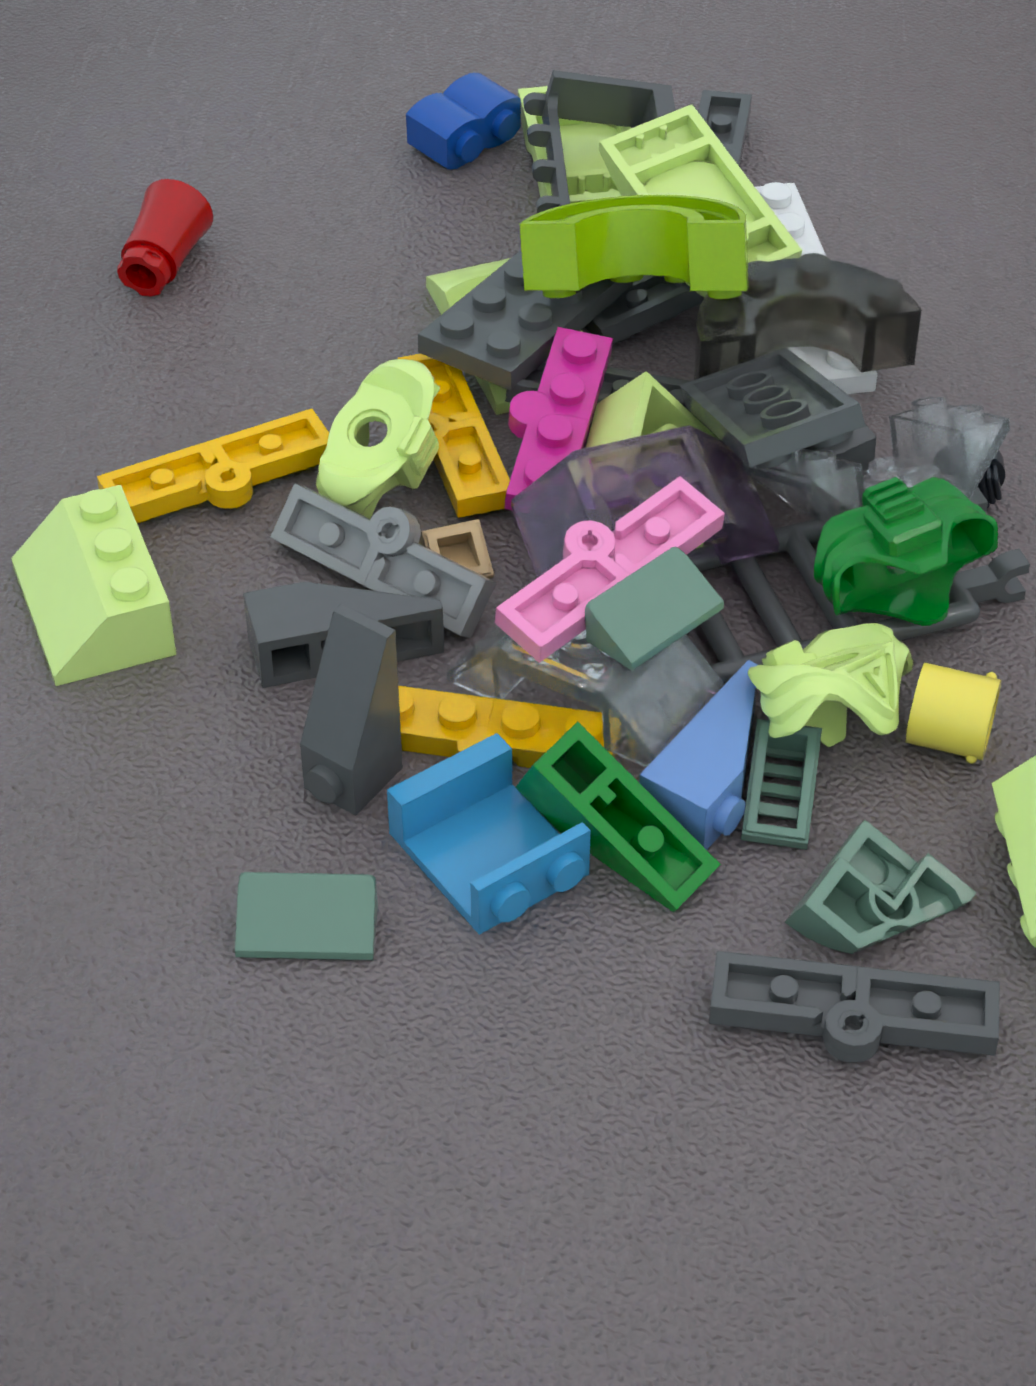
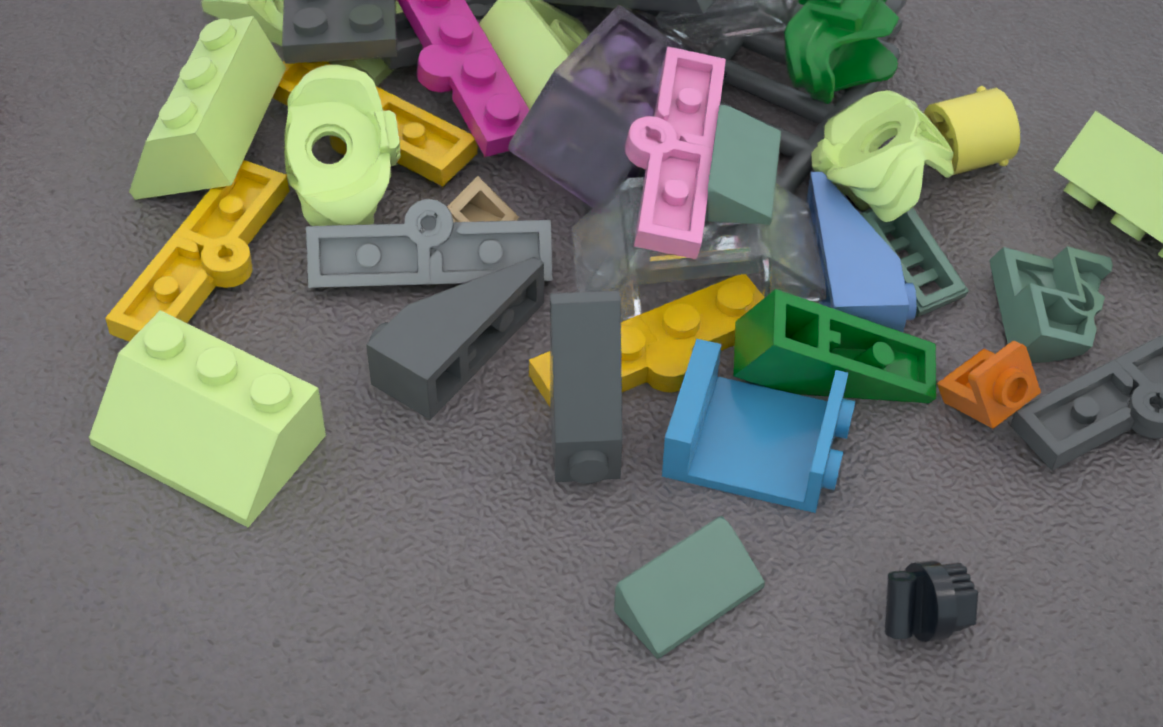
camera: 40 degrees left, 5 degrees up
(318, 356) = (210, 111): none -> yellowish green slope
(469, 1041) = (930, 601): none -> black piece
(715, 916) = (991, 384): none -> orange bracket

